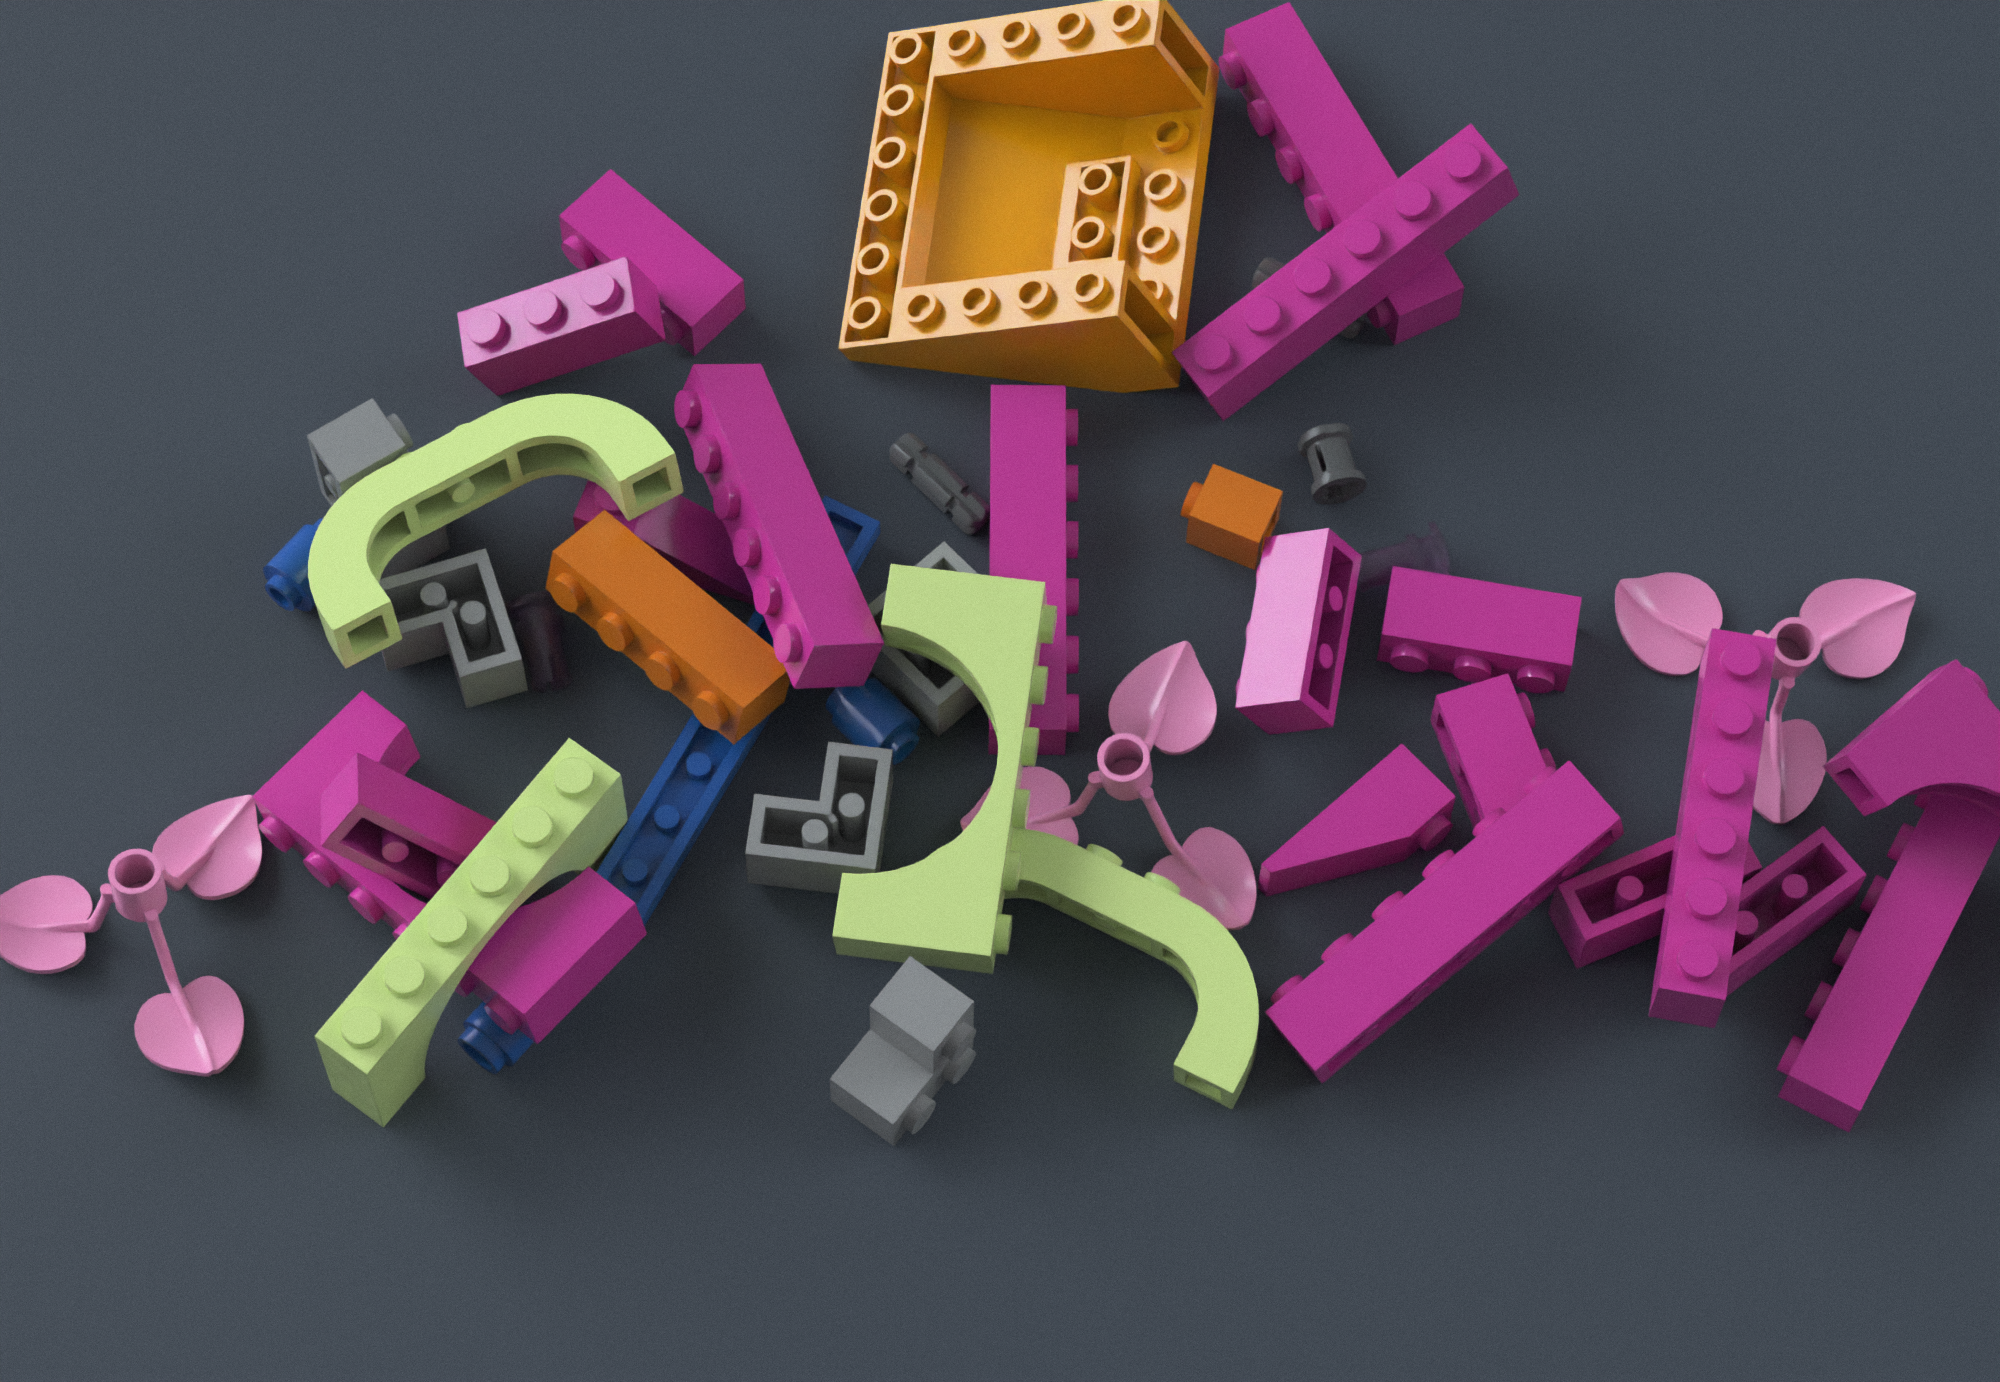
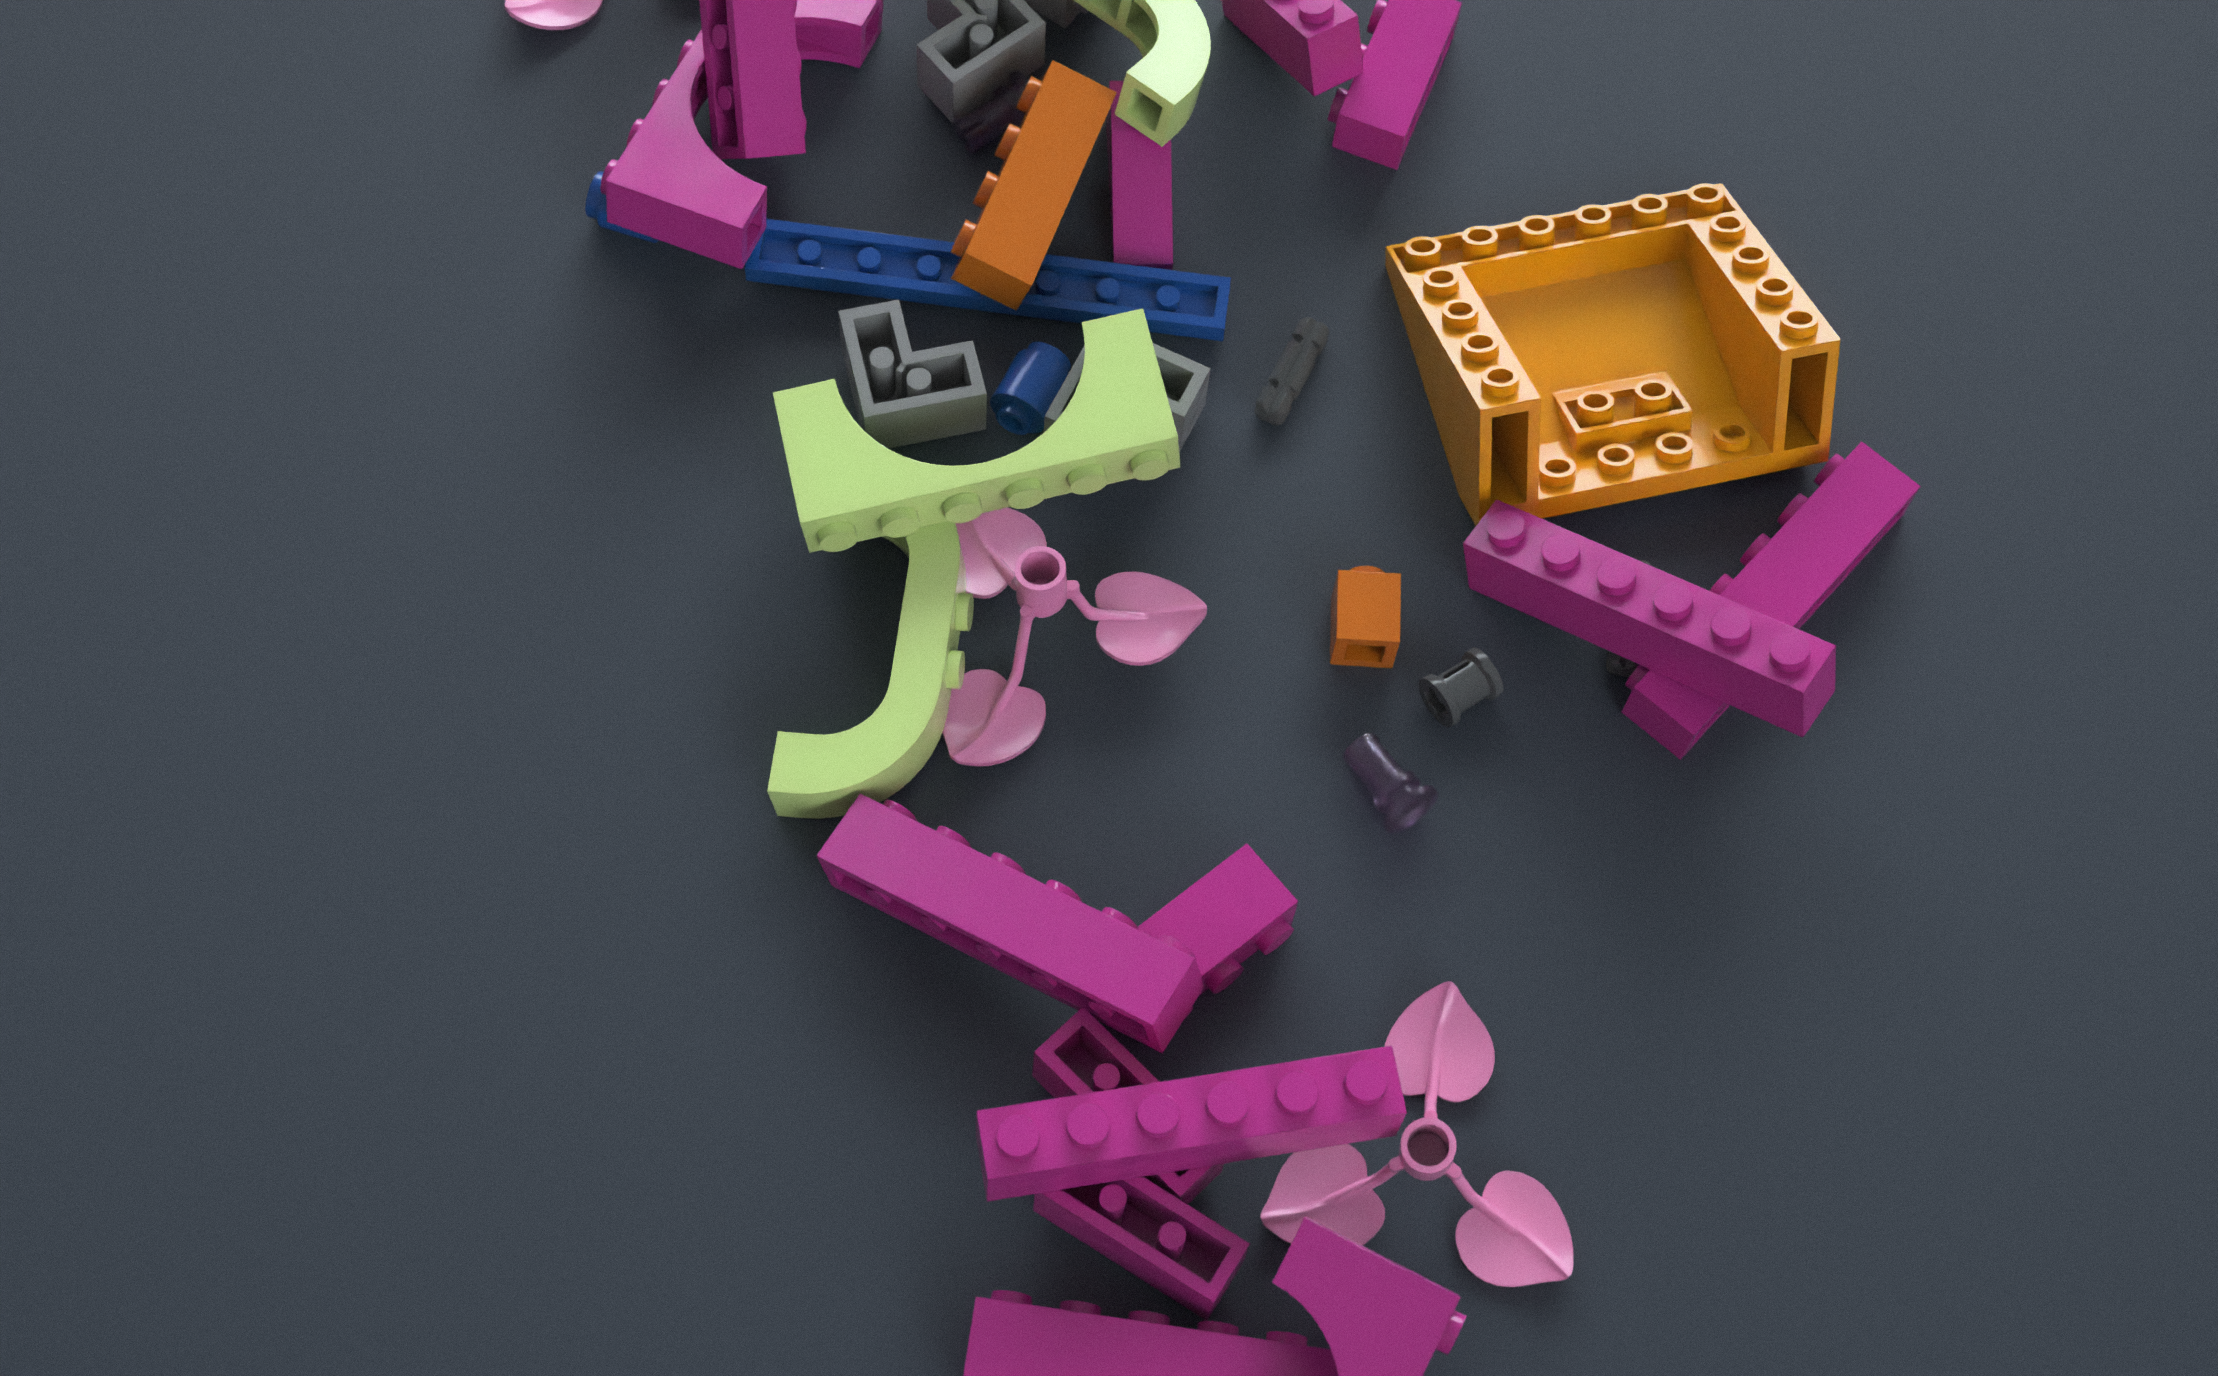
camera: 65 degrees right, 0 degrees up
(383, 1029) = (569, 91): yellowish green arch -> none
(778, 526) = (1165, 234): dark pink brick -> none
(914, 1044) = (712, 513): light grey brick -> none
(1032, 531) = (1249, 462): dark pink brick -> none
(1298, 631) = (1266, 706): brick -> none
(1365, 828) = (1103, 838): dark pink slope -> none
(1479, 629) = (1343, 871): dark pink brick -> none

